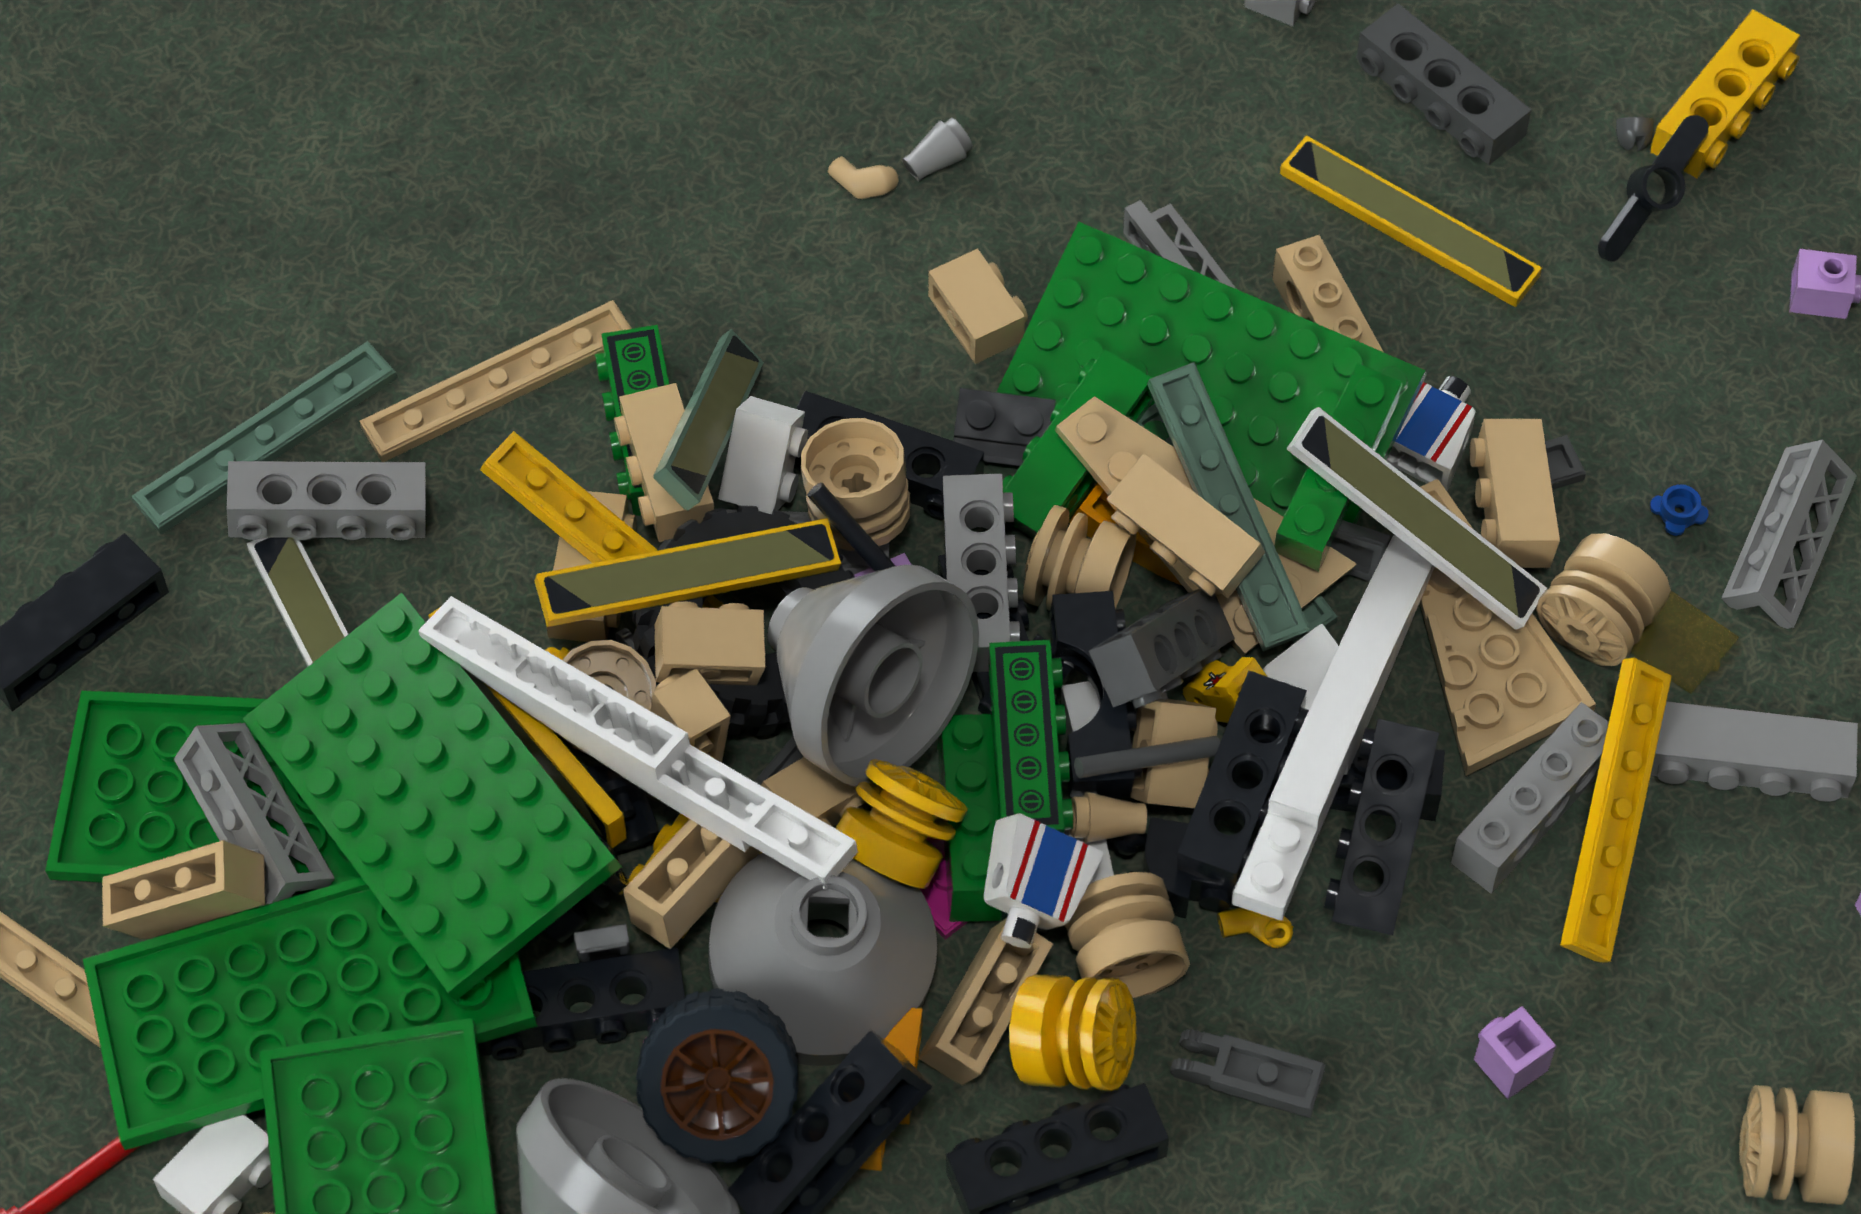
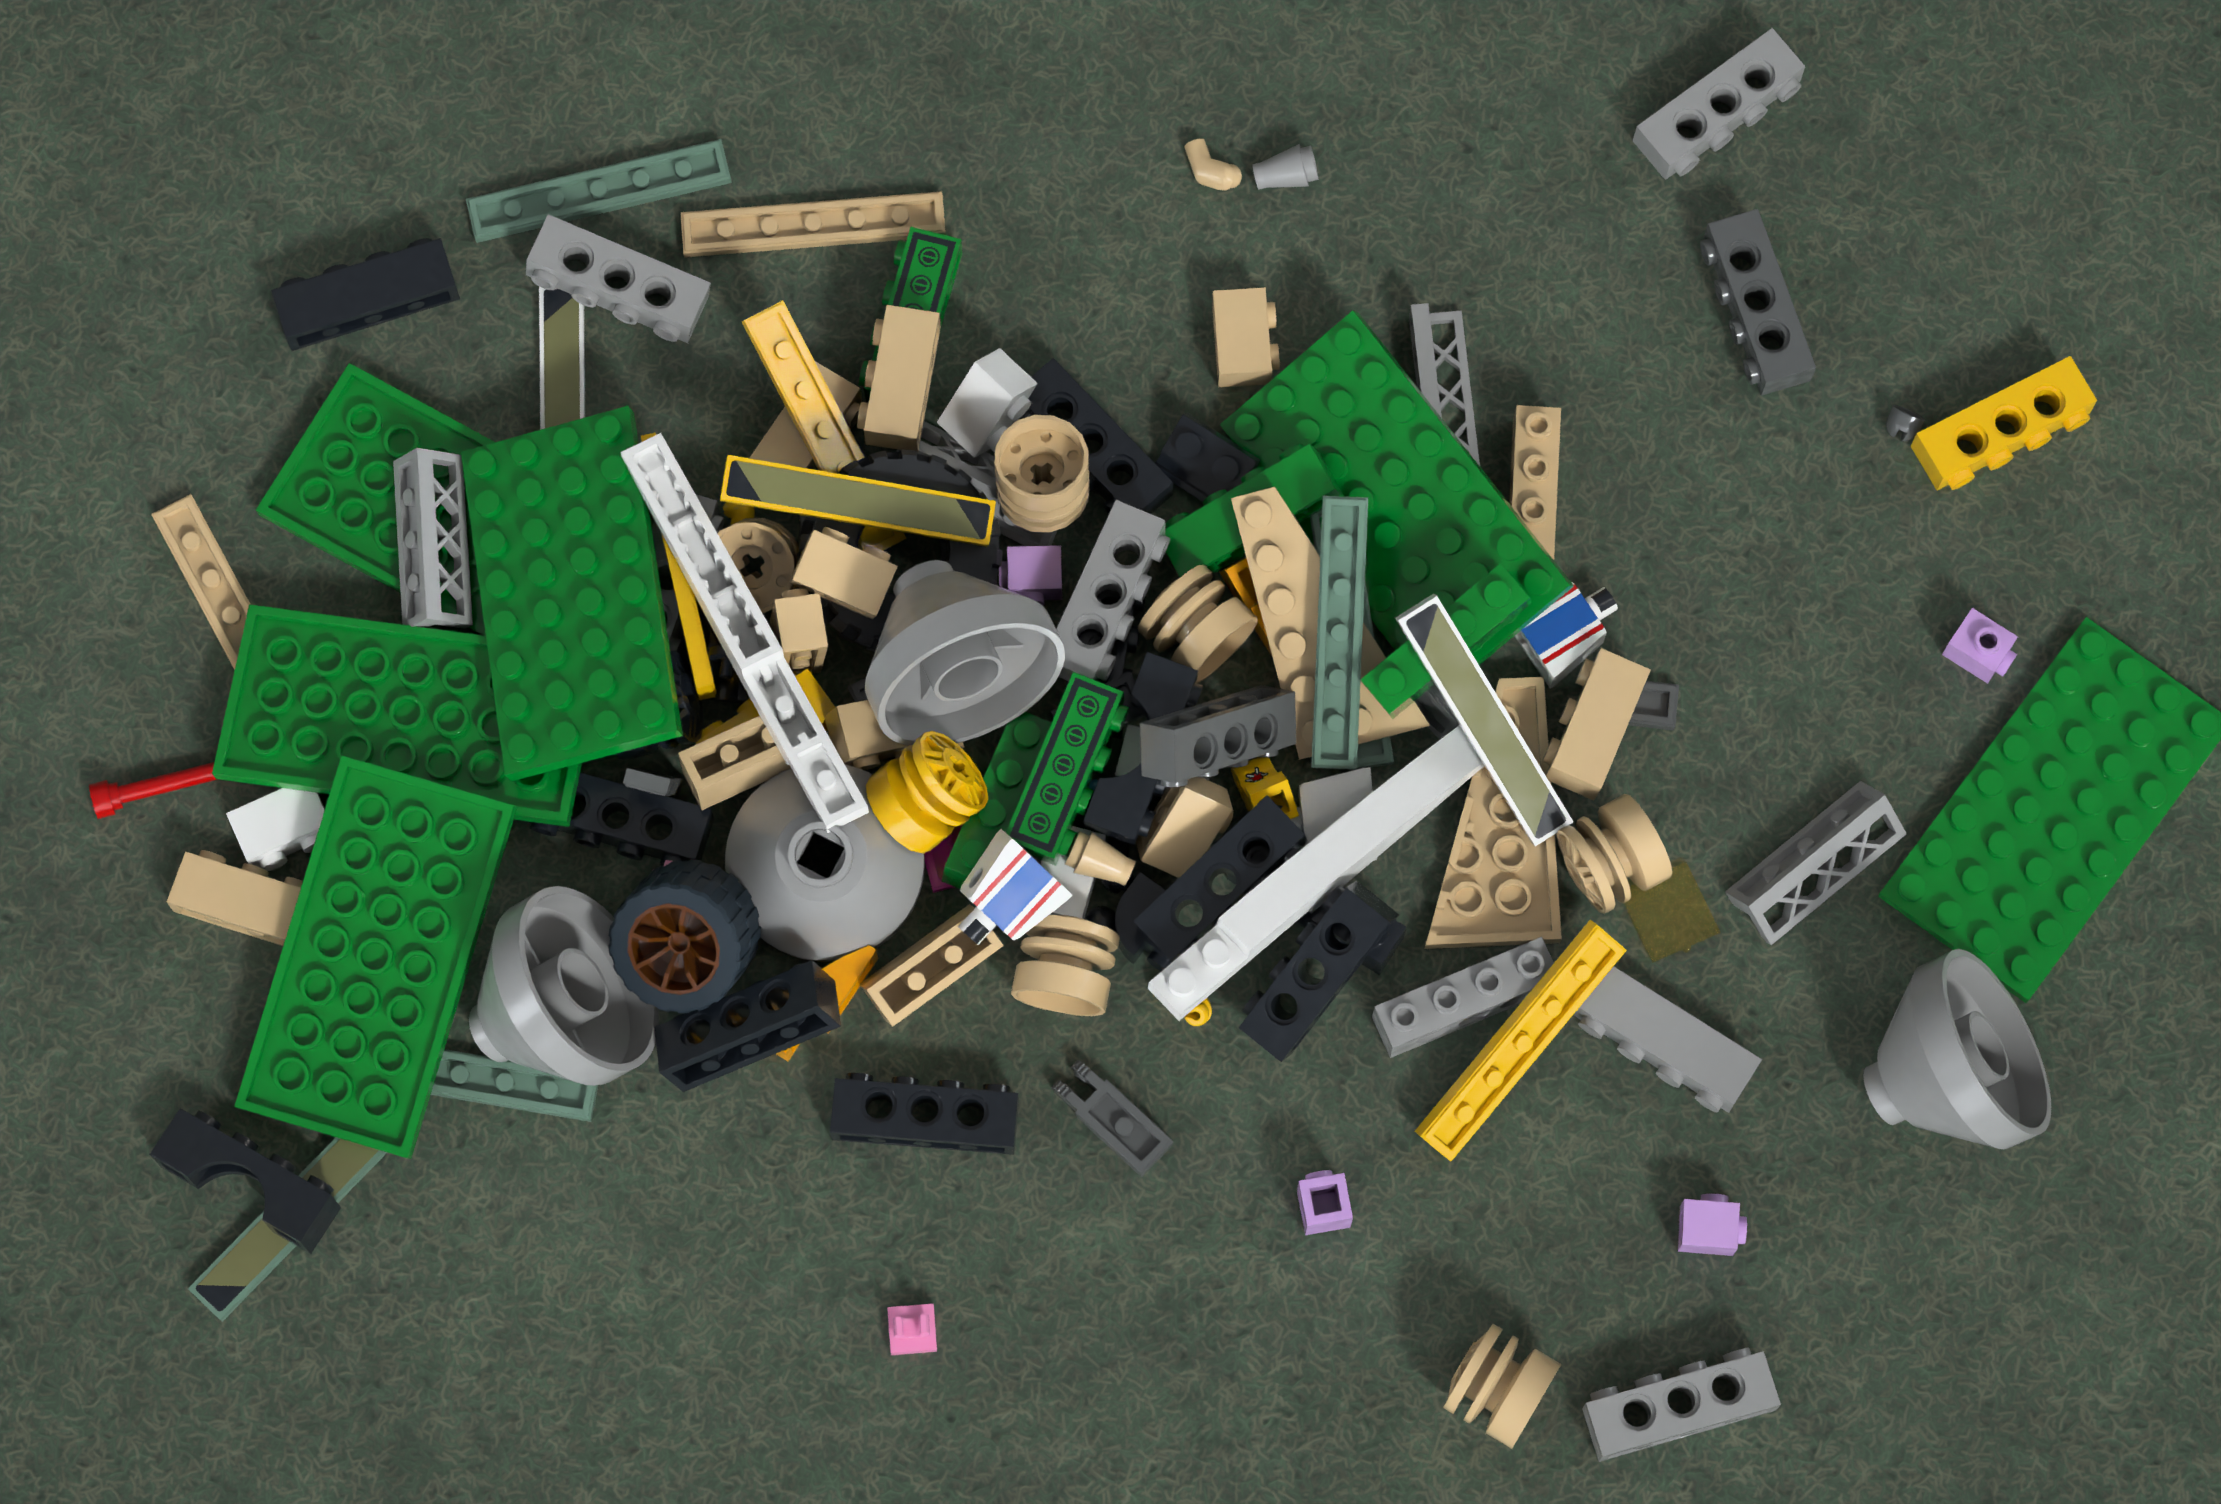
camera: 25 degrees right, 15 degrees up
(183, 890) = (348, 584): tan brick -> none
(708, 420) = (951, 357): tile -> none
(849, 528) = (1018, 532): black bar -> none
(1072, 1032) = (980, 1027): yellow wheel -> none
(1146, 756) = (1151, 827): dark grey bar -> none
(1184, 527) = (1287, 639): tan brick -> none
(1411, 221) = (1660, 420): tile -> none
(1669, 167) = (1907, 475): black piece -> none
(1682, 497) = (1745, 786): blue plate -> none

